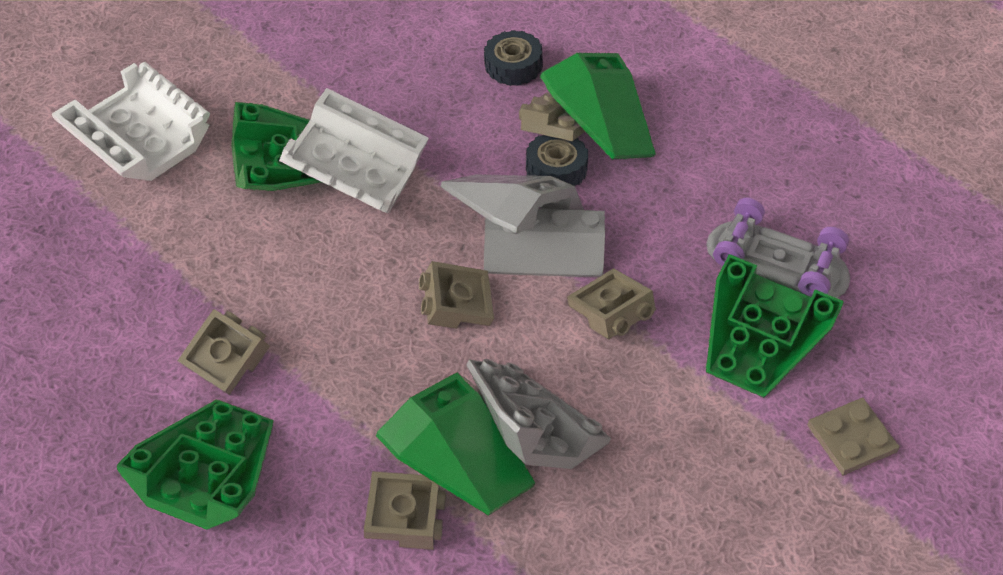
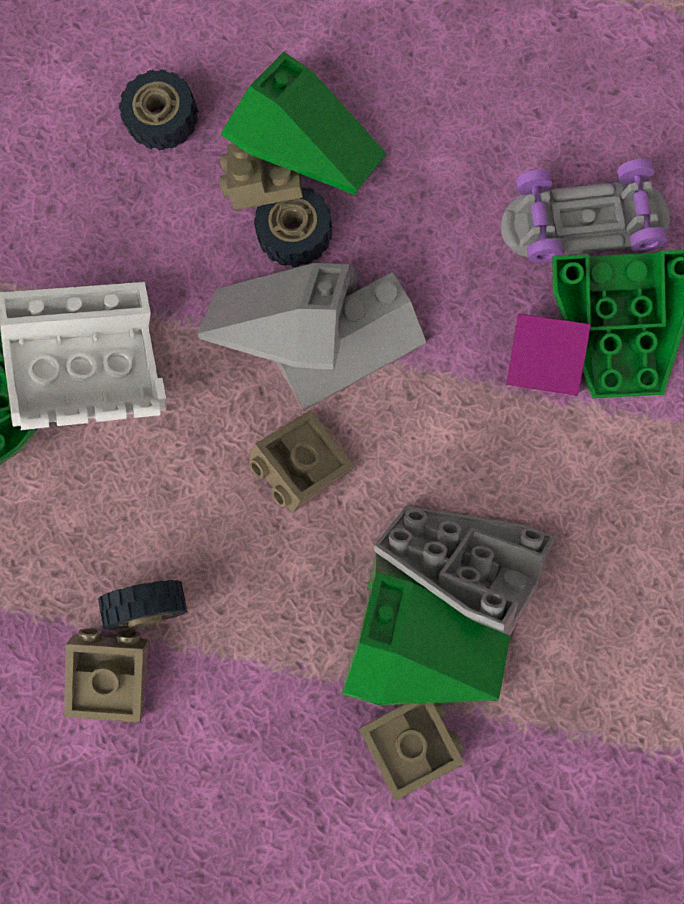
camera: 30 degrees left, 25 degrees up
(201, 465) = (179, 817): green wedge -> none
(282, 314) = (142, 604): none -> black wheel
(613, 303) = (461, 375): dark tan plate -> none
(687, 320) = (548, 354): none -> magenta tile

